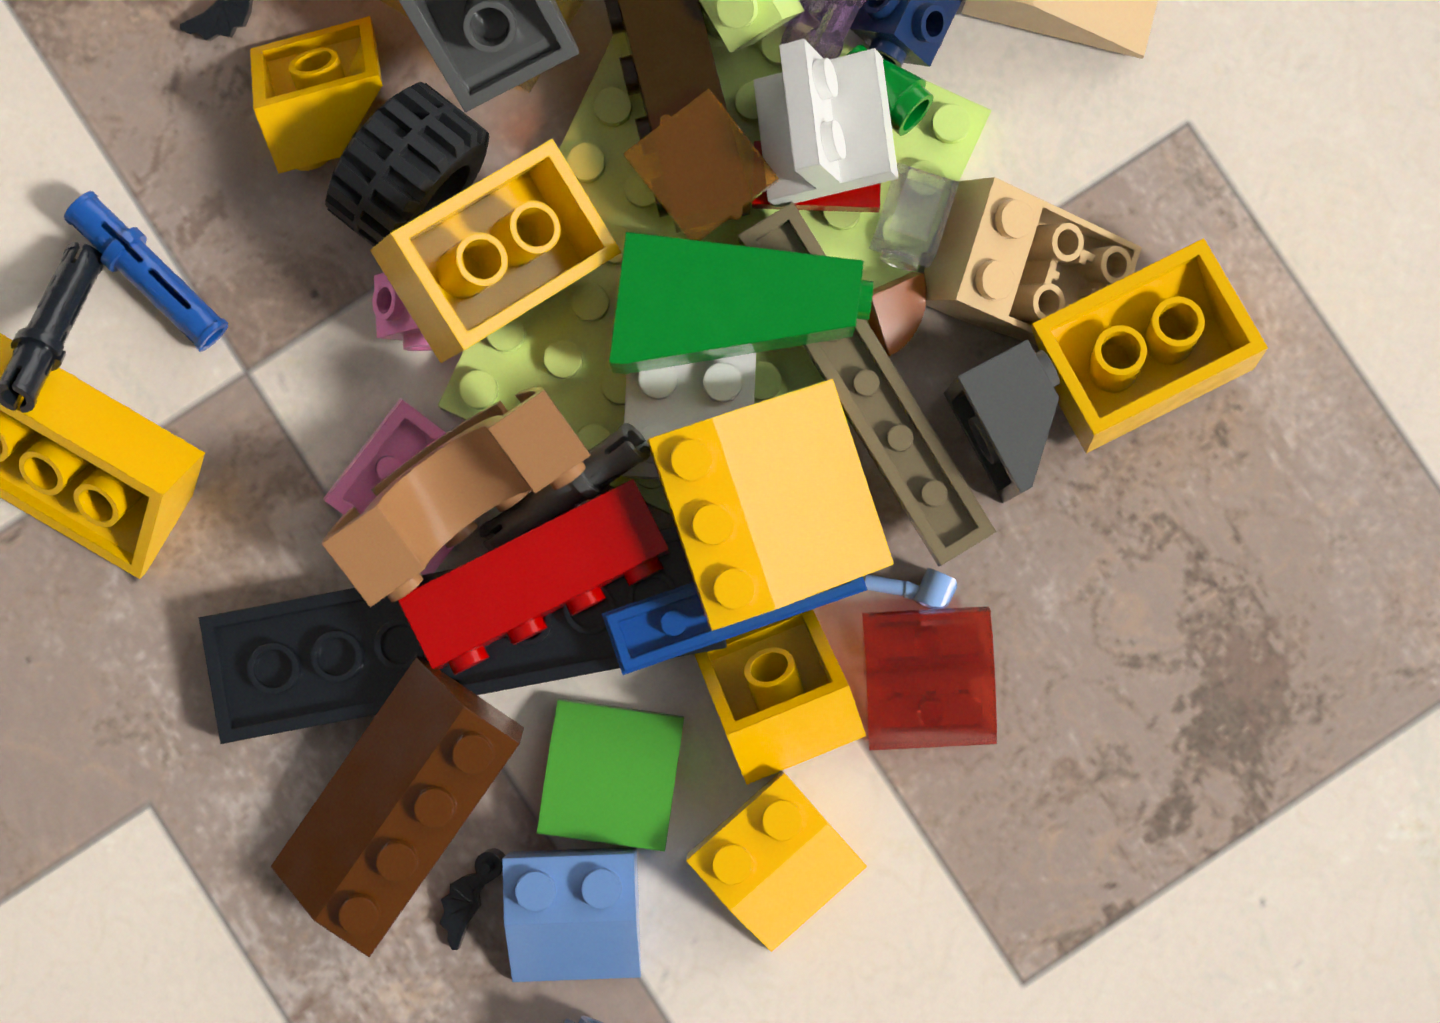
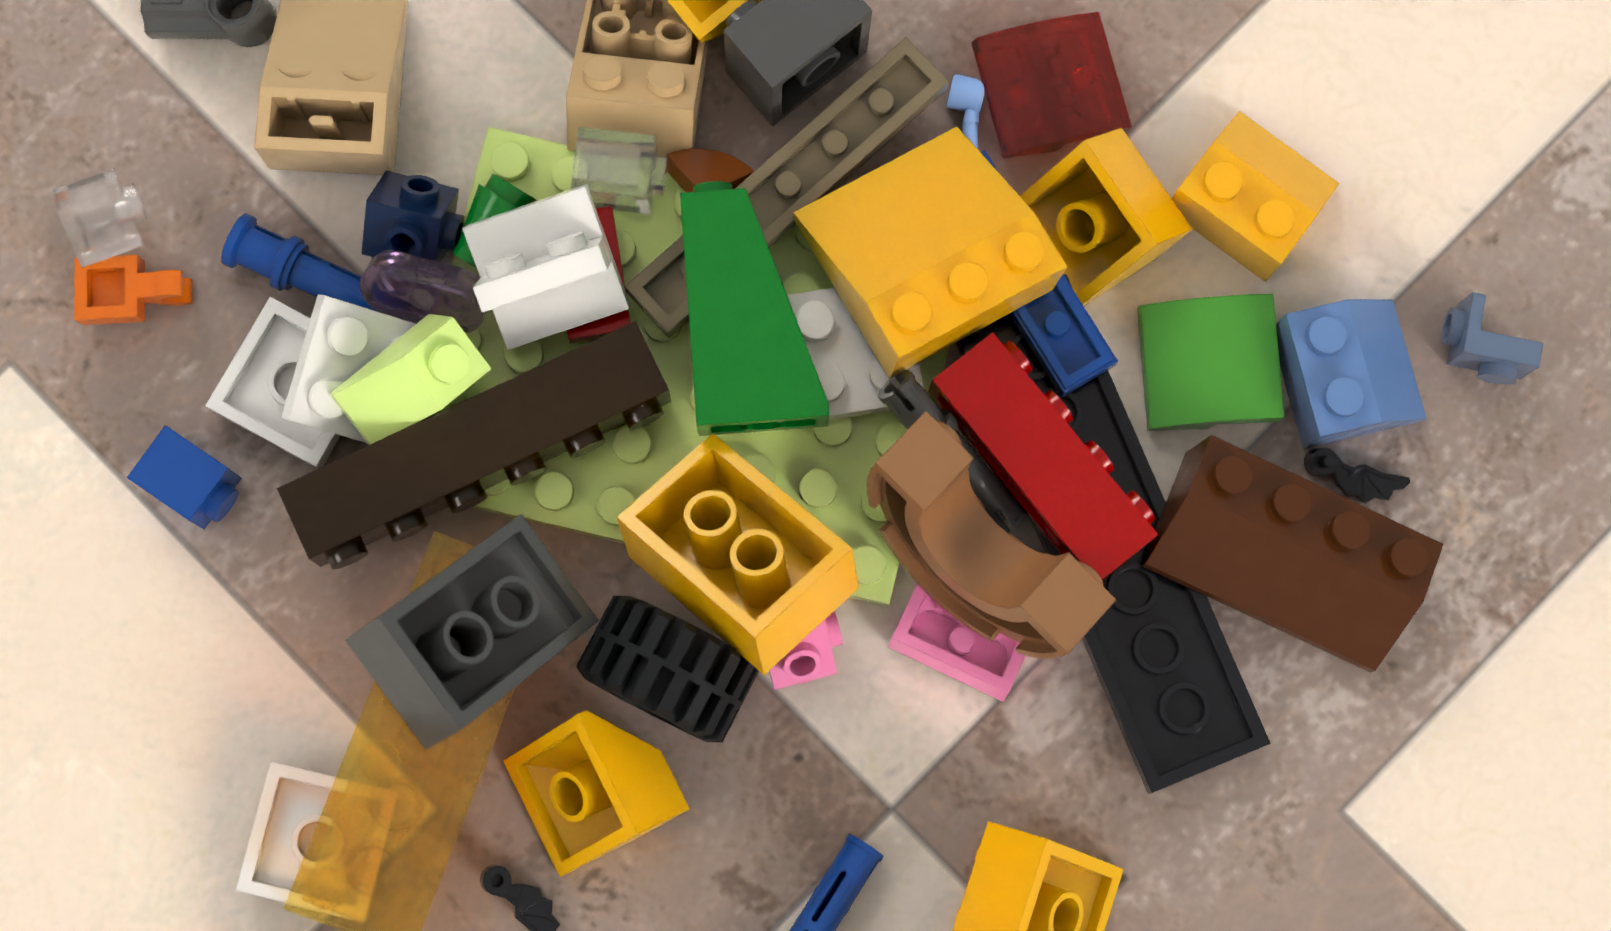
camera: 105 degrees left, 5 degrees down
(701, 166) = (612, 373): clear orange piece -> none

